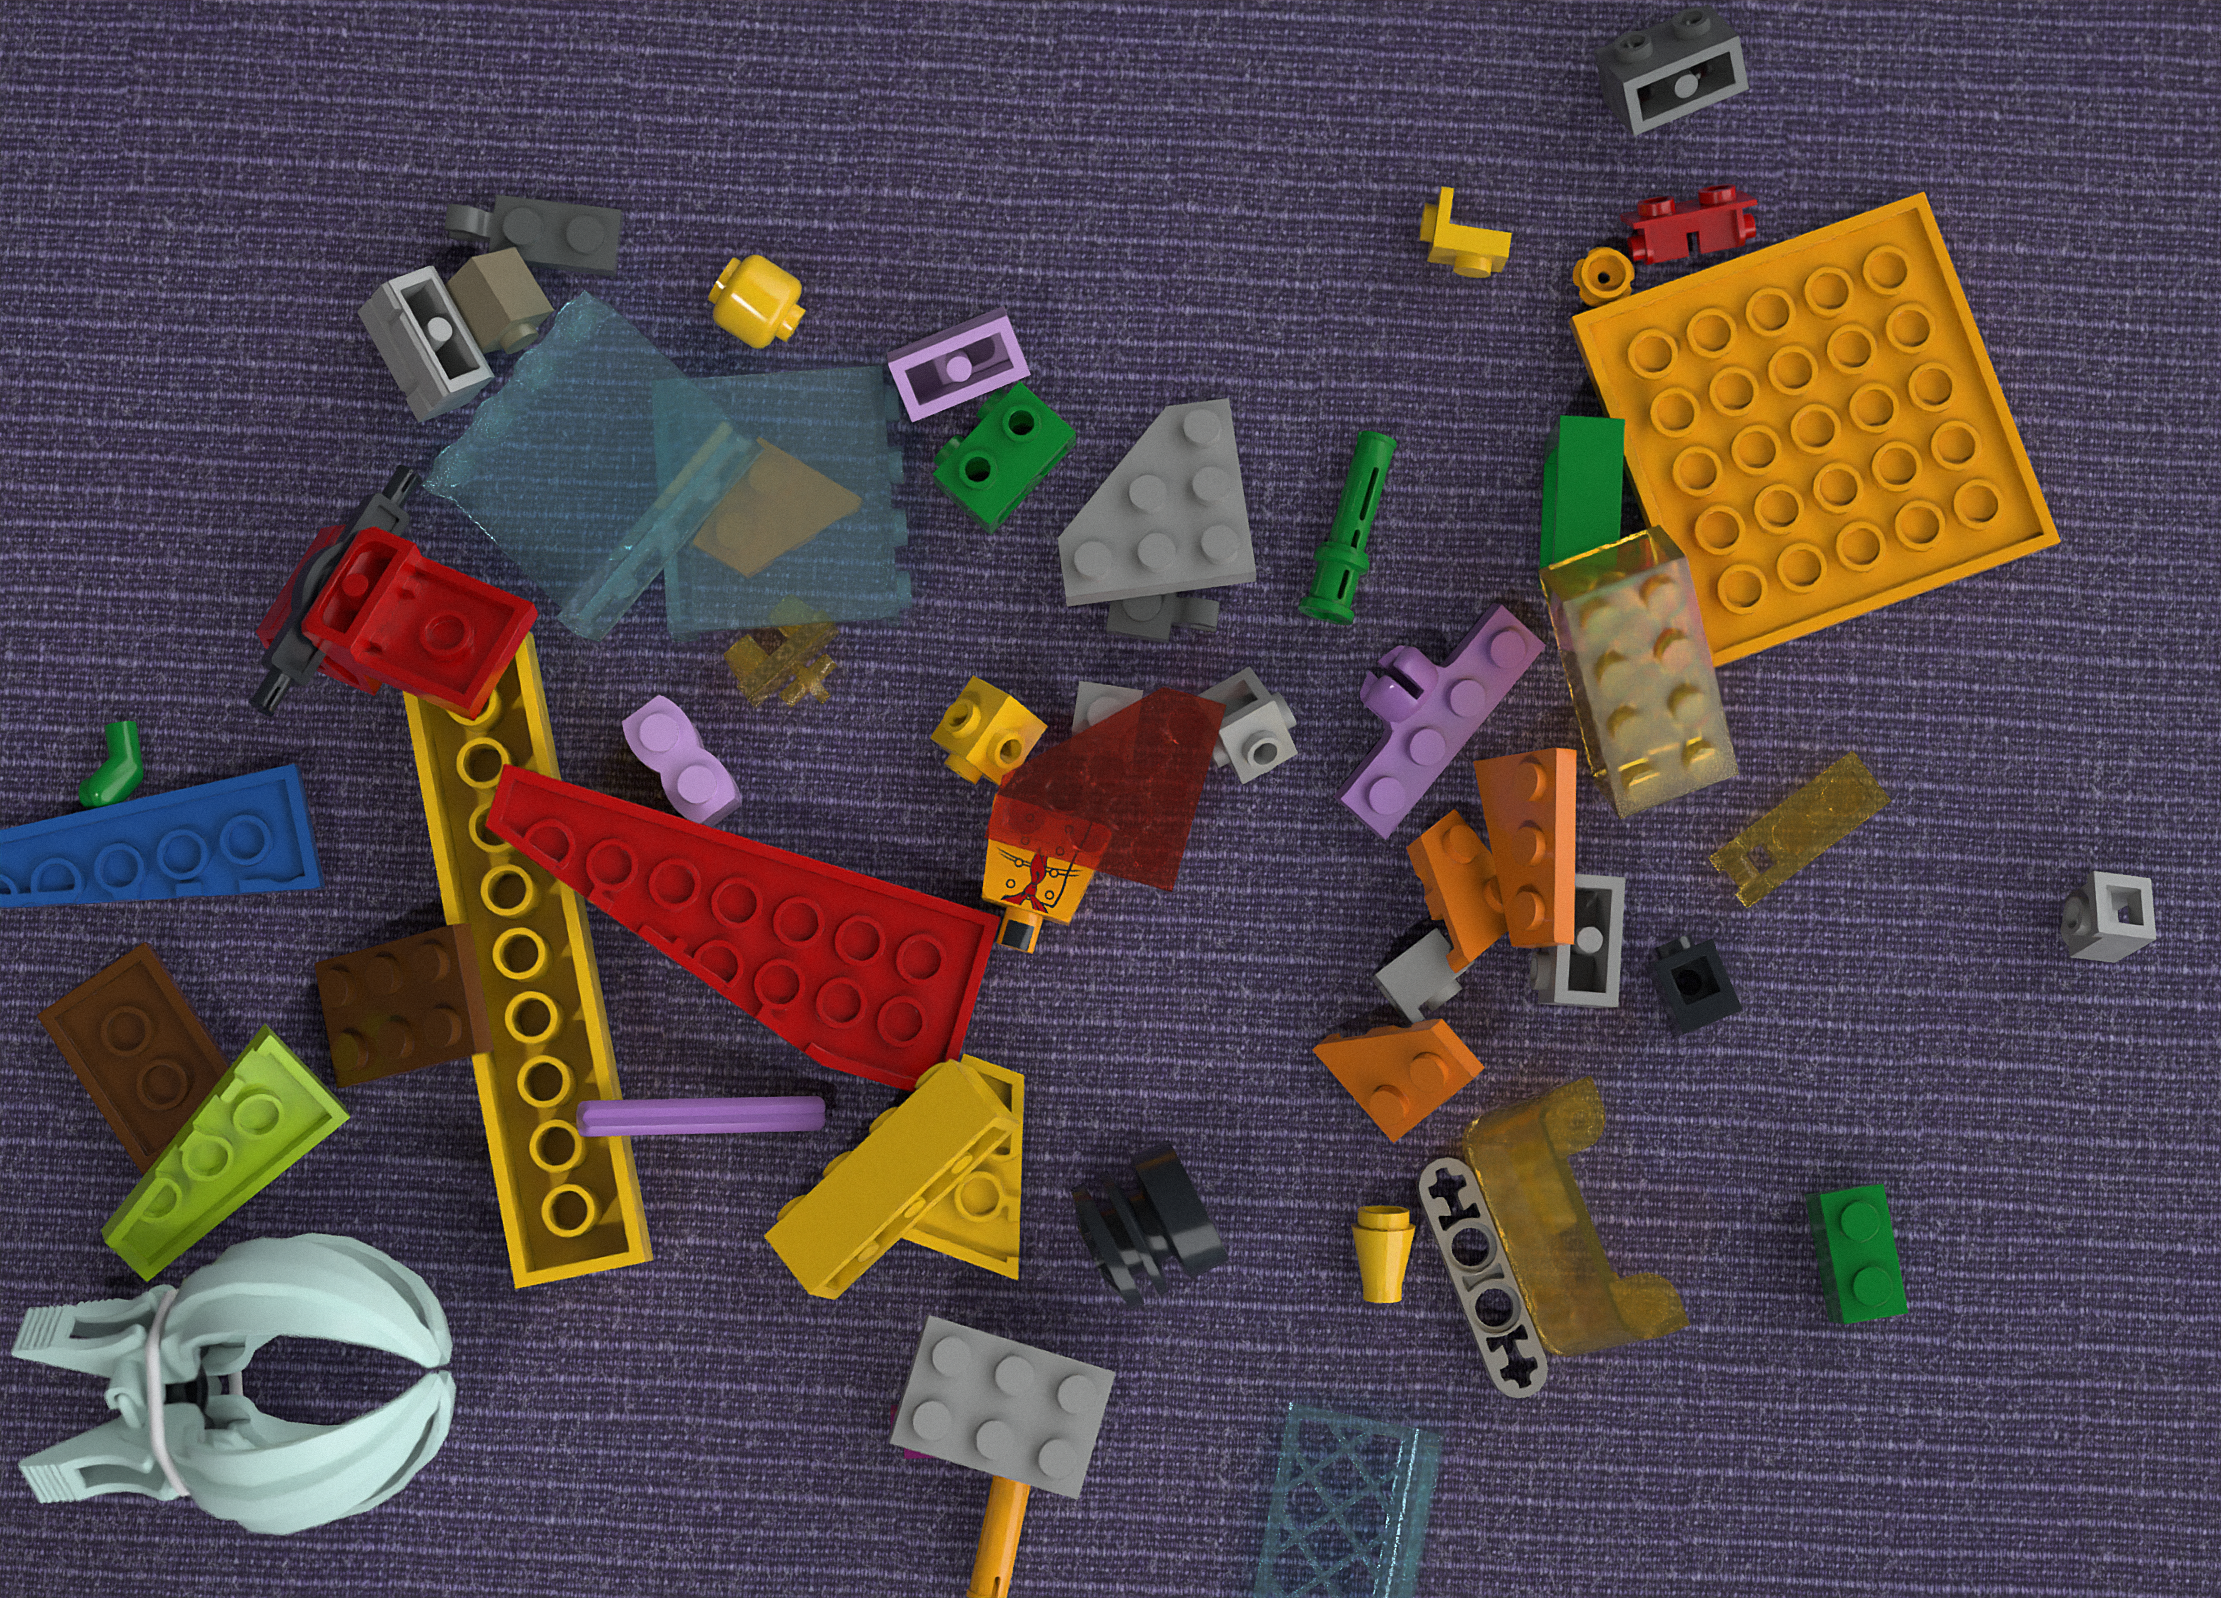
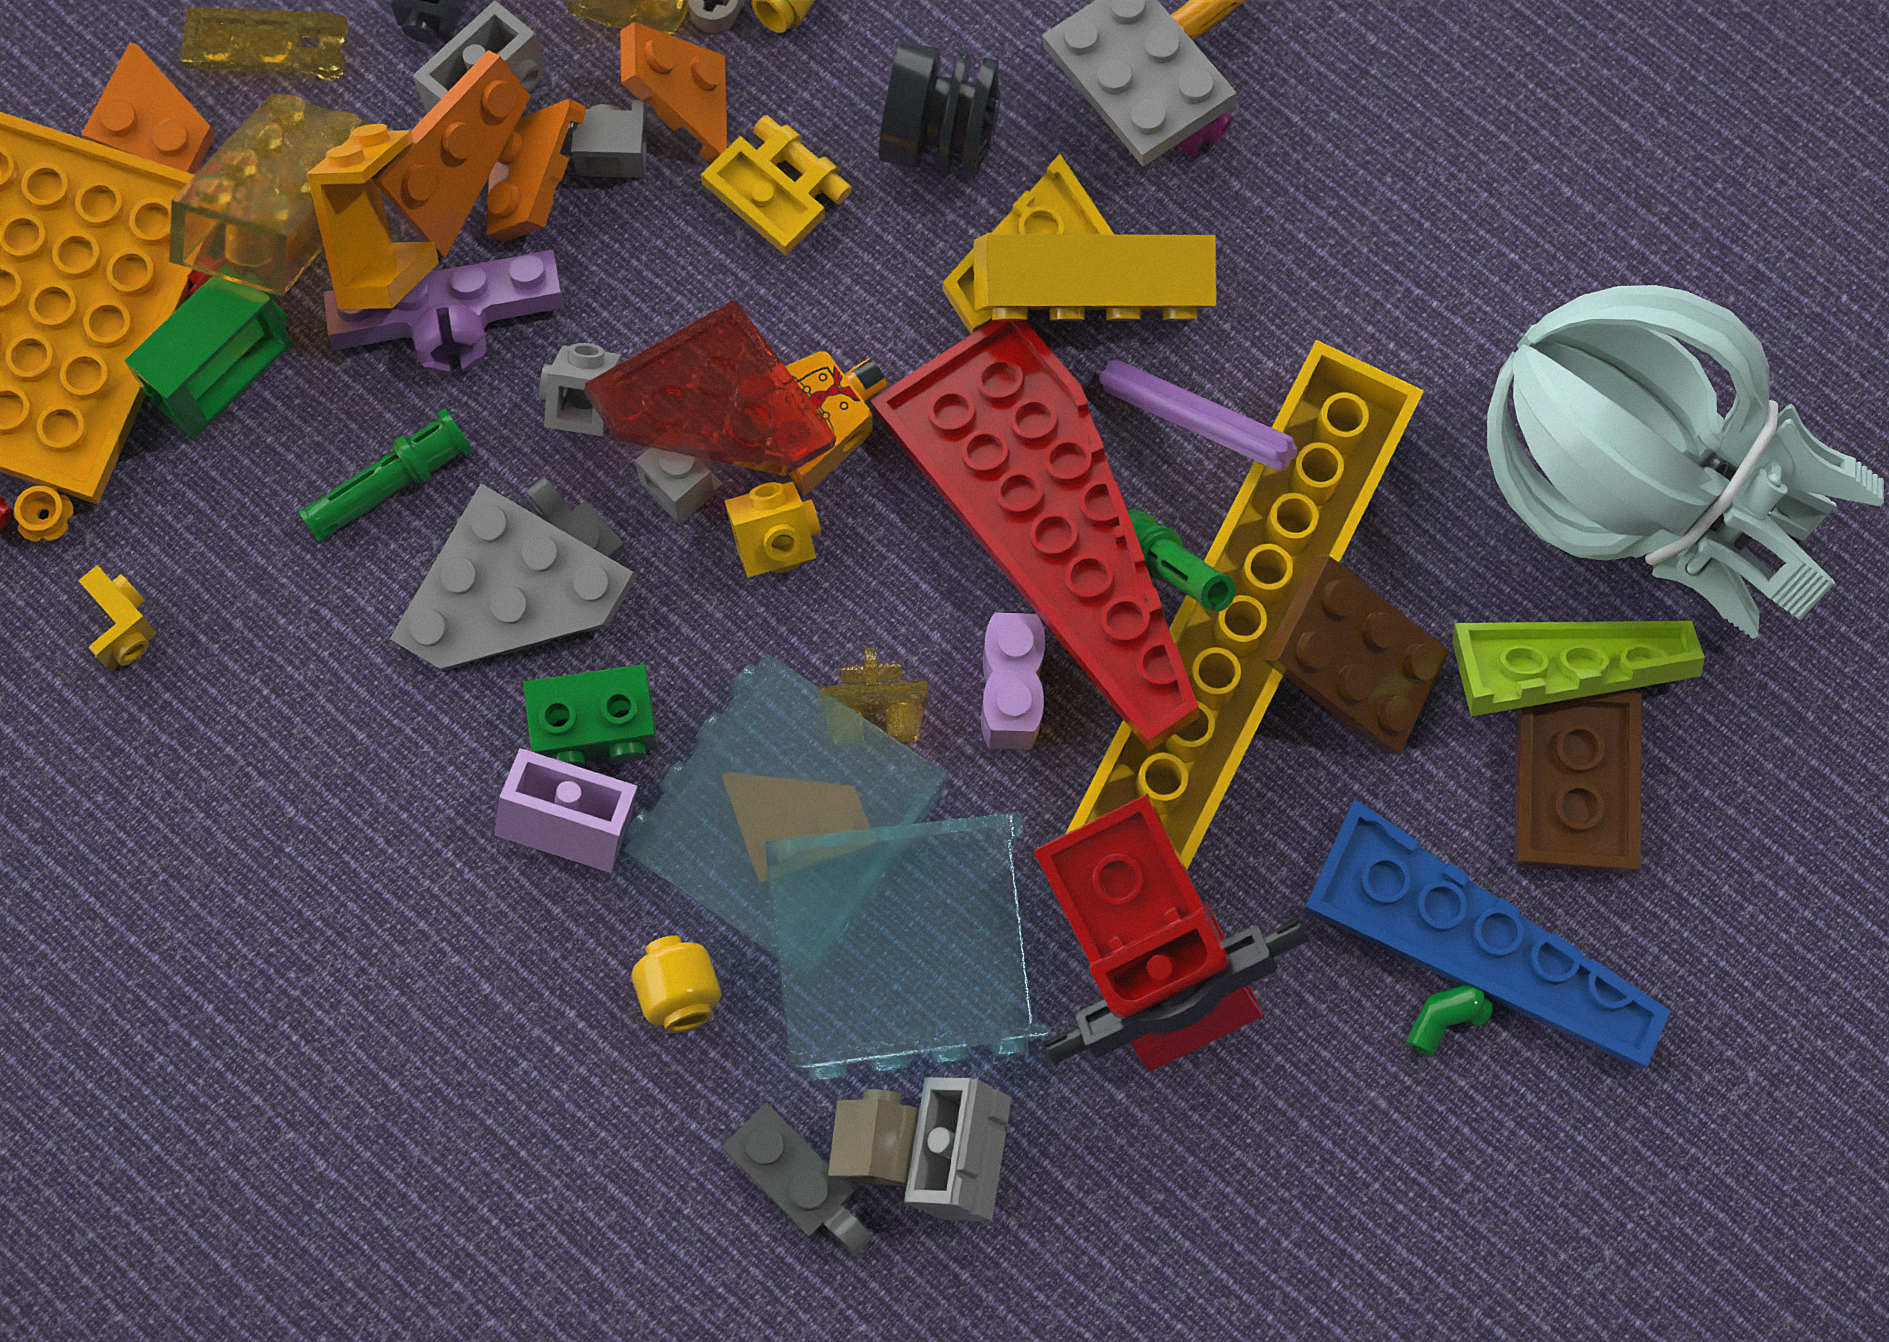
camera: 140 degrees left, 10 degrees down
(633, 961) = (1187, 572): none -> green pin
(1246, 1036) = (764, 194): none -> yellow plate
(1526, 688) = (354, 227): none -> light orange panel
(1835, 682) = (148, 116): none -> orange wing

